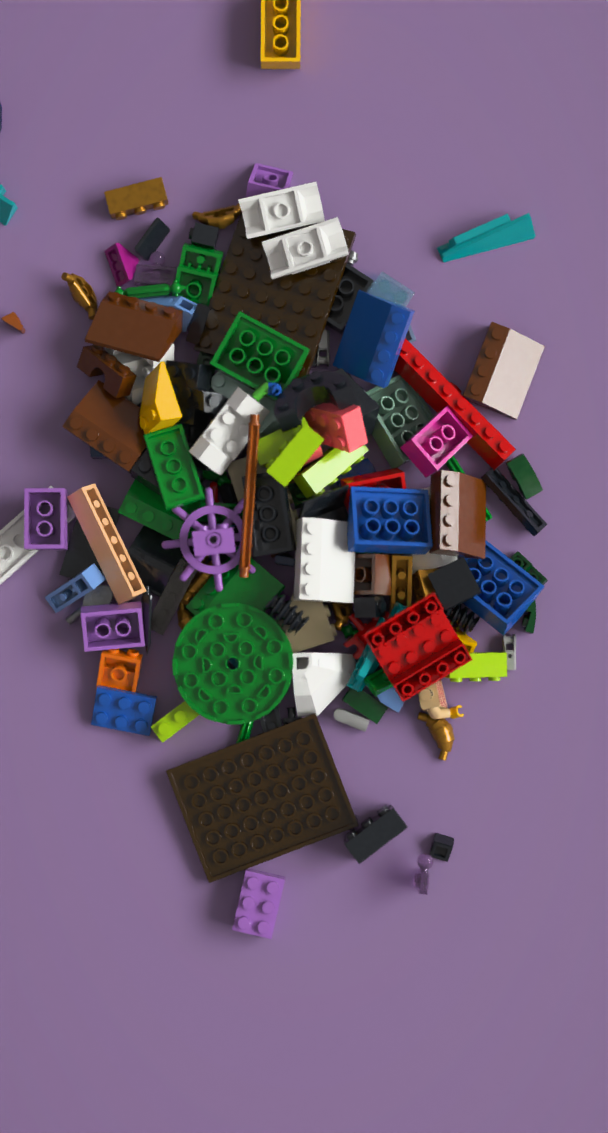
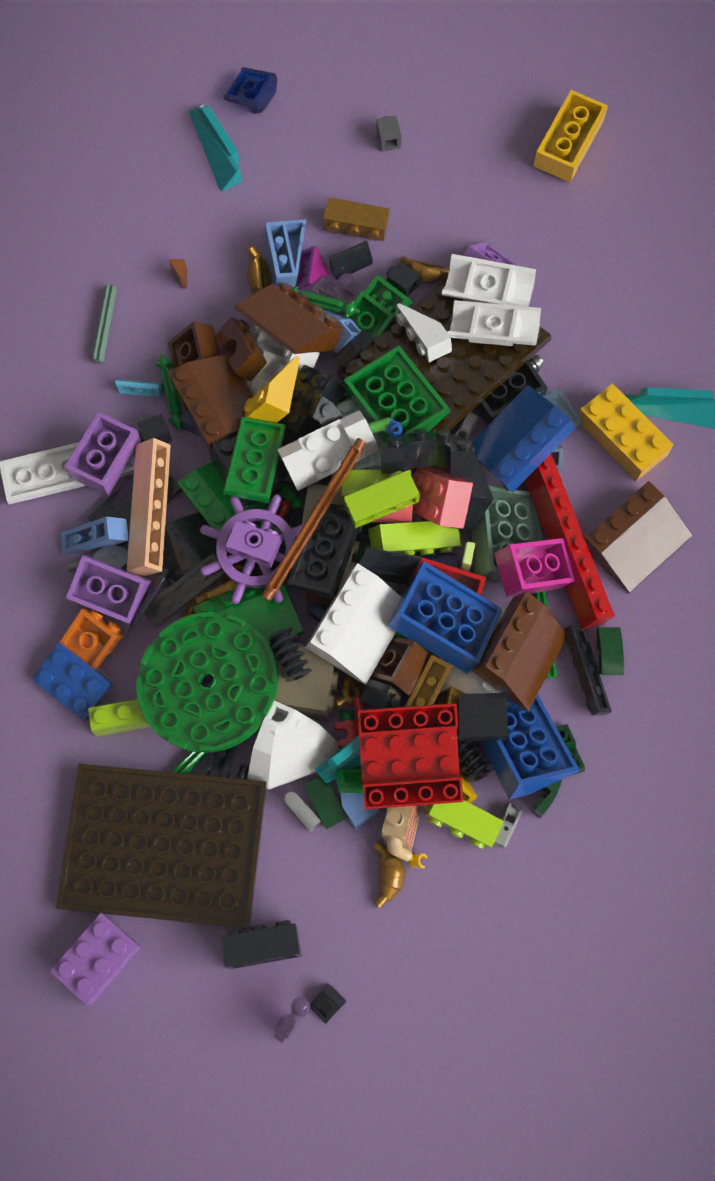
camera: 25 degrees right, 15 degrees down
(37, 441) = (139, 387): none -> medium azure slope
(65, 388) = (193, 344): none -> reddish brown slope
(72, 476) = (154, 428): none -> black brick
(74, 443) = (170, 394): none -> green wheel
(92, 261) = (283, 249): none -> medium blue wedge
(121, 99) = (388, 133): none -> dark grey brick
(253, 282) = (427, 333): none -> white slope
(379, 460) = (467, 557): none -> yellowish green tile
(452, 284) = (625, 432): none -> yellow brick

